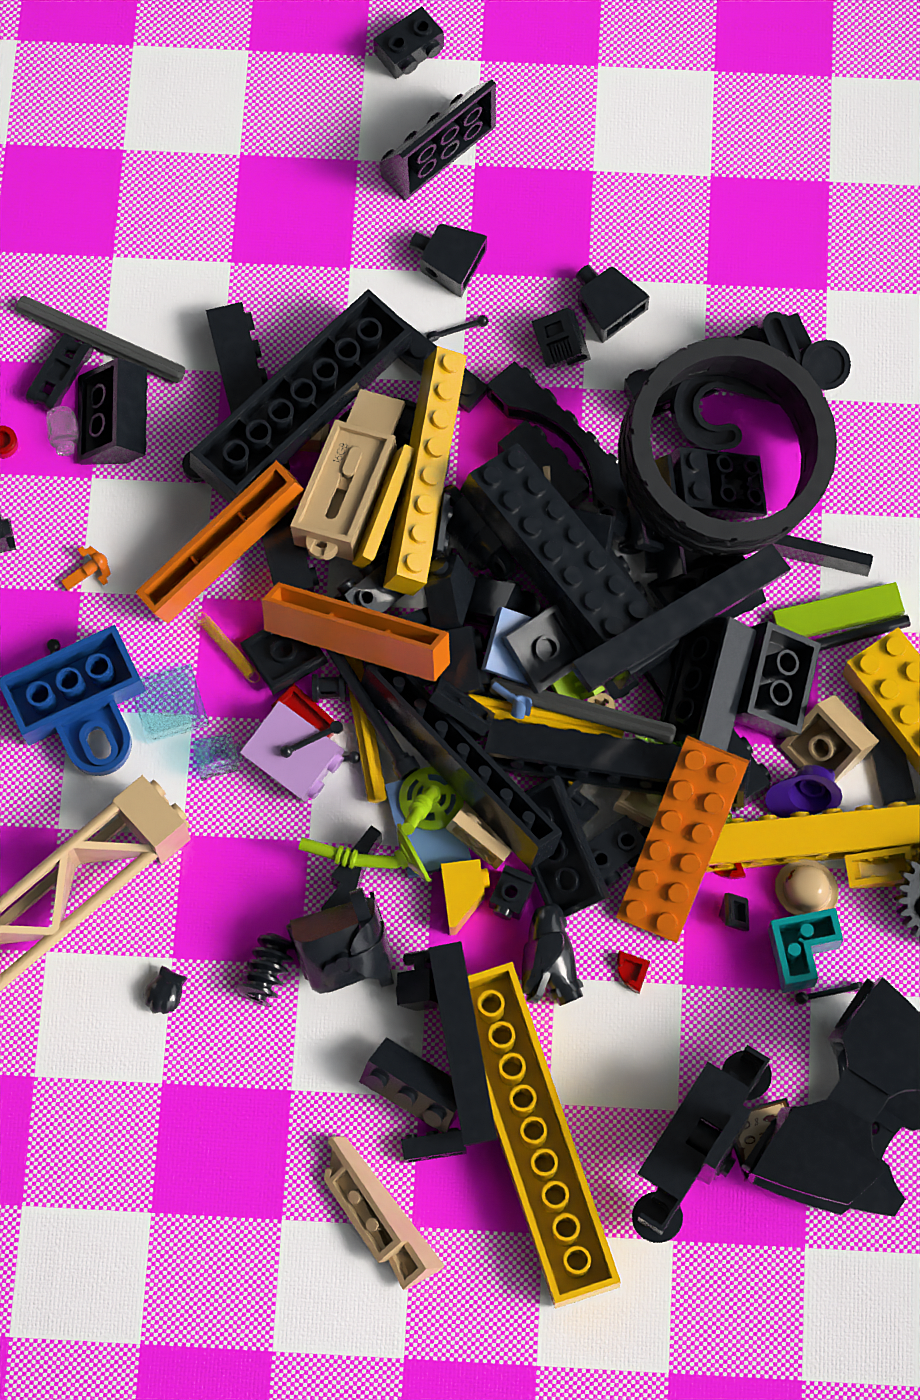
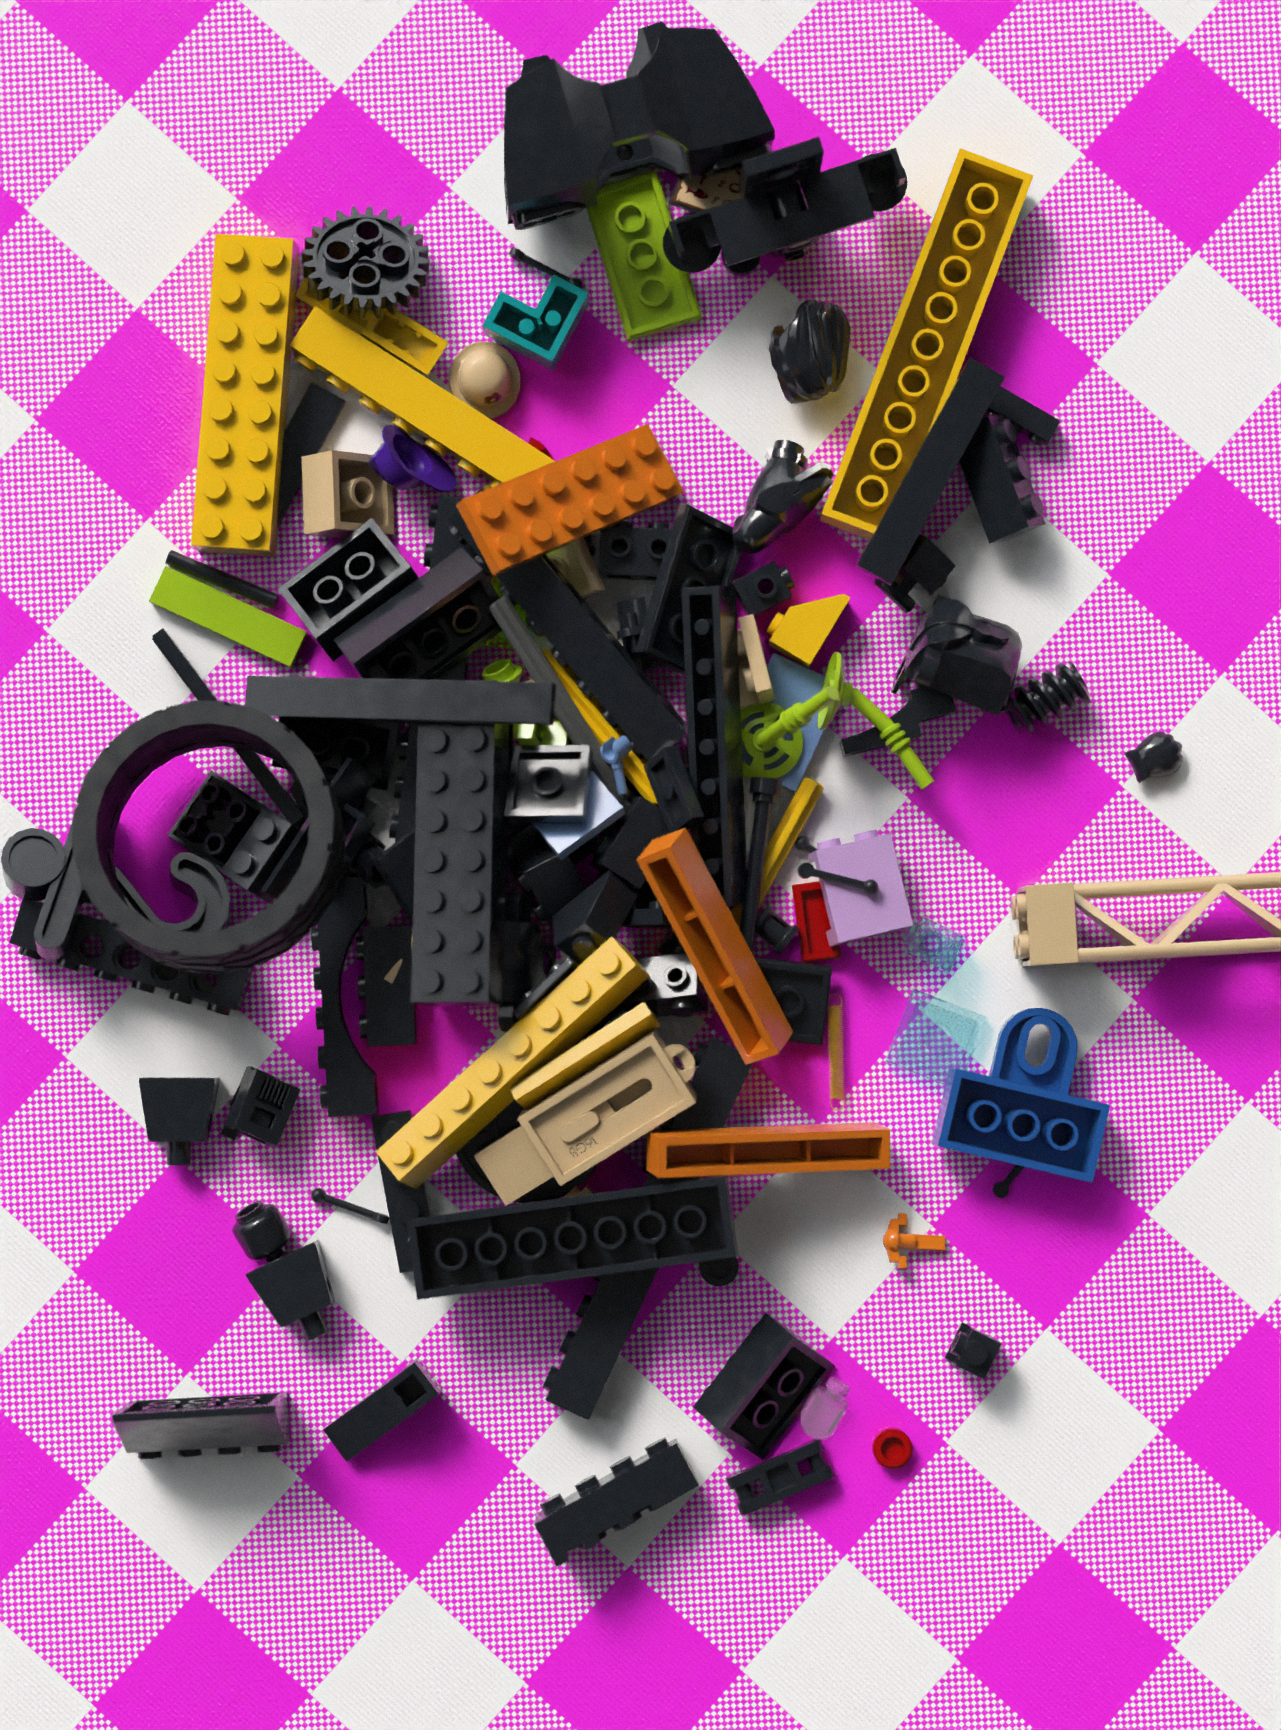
camera: 140 degrees left, 15 degrees up
(100, 339) = (712, 1481): dark grey axle -> none
(153, 278) = (614, 1499): none -> black wedge
(337, 231) = (382, 1409): none -> black slope
(378, 1216) = (1121, 392): tan wedge -> none
(409, 43) = (144, 1561): black brick -> none
(499, 271) = (261, 1231): none -> black head
(608, 1071) = (811, 352): none -> black hair
(632, 970) = (708, 432): red tile -> none
(634, 701) = (502, 670): none -> lime animal
(735, 912) = (571, 408): black slope -> none
(799, 1063) = (629, 236): none -> lime tile

